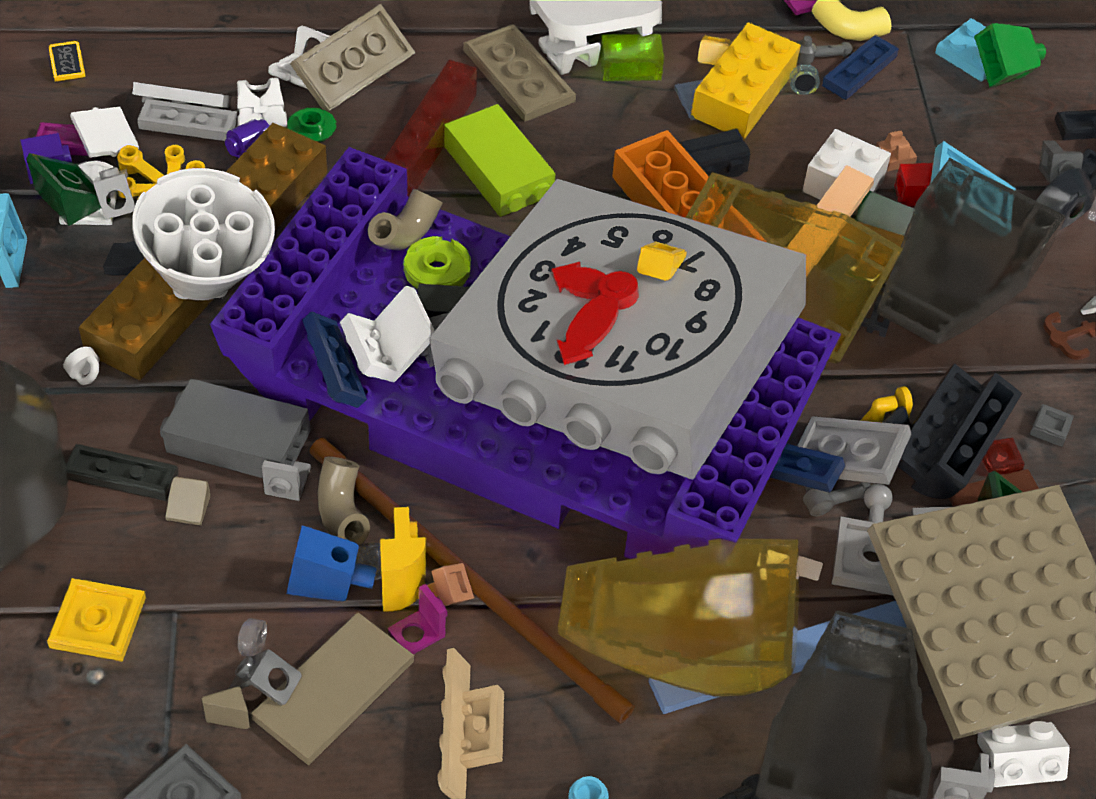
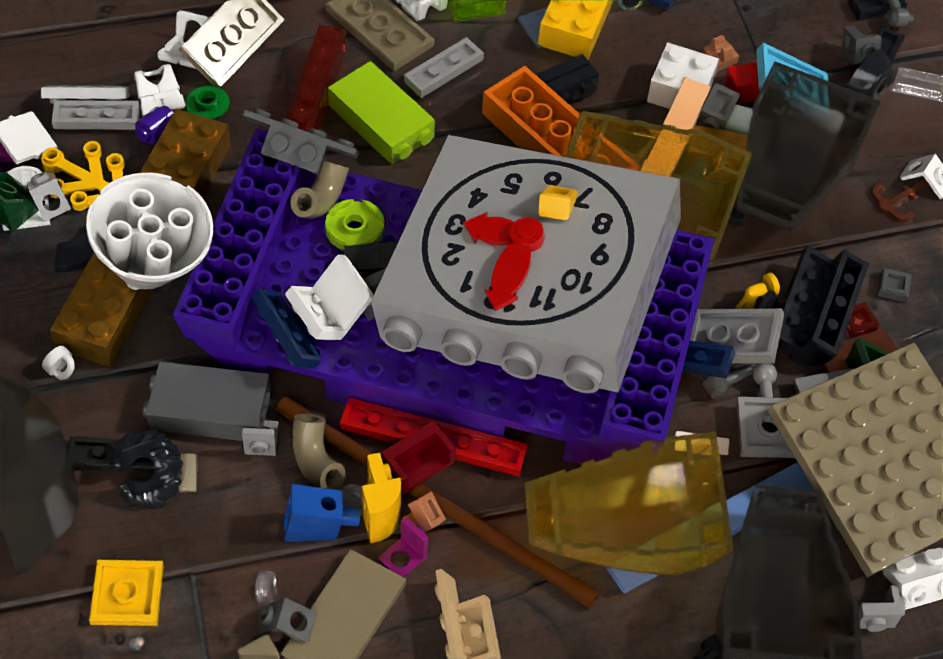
camera: 10 degrees left, 5 degrees up
(171, 487) = (167, 465): none -> black piece
(387, 169) = (295, 145): none -> dark grey bracket
(455, 522) = (419, 456): none -> dark red panel
(481, 507) = (470, 445): none -> red plate
(579, 123) = (443, 67): none -> light grey plate
(879, 202) = (718, 107): none -> dark grey bracket

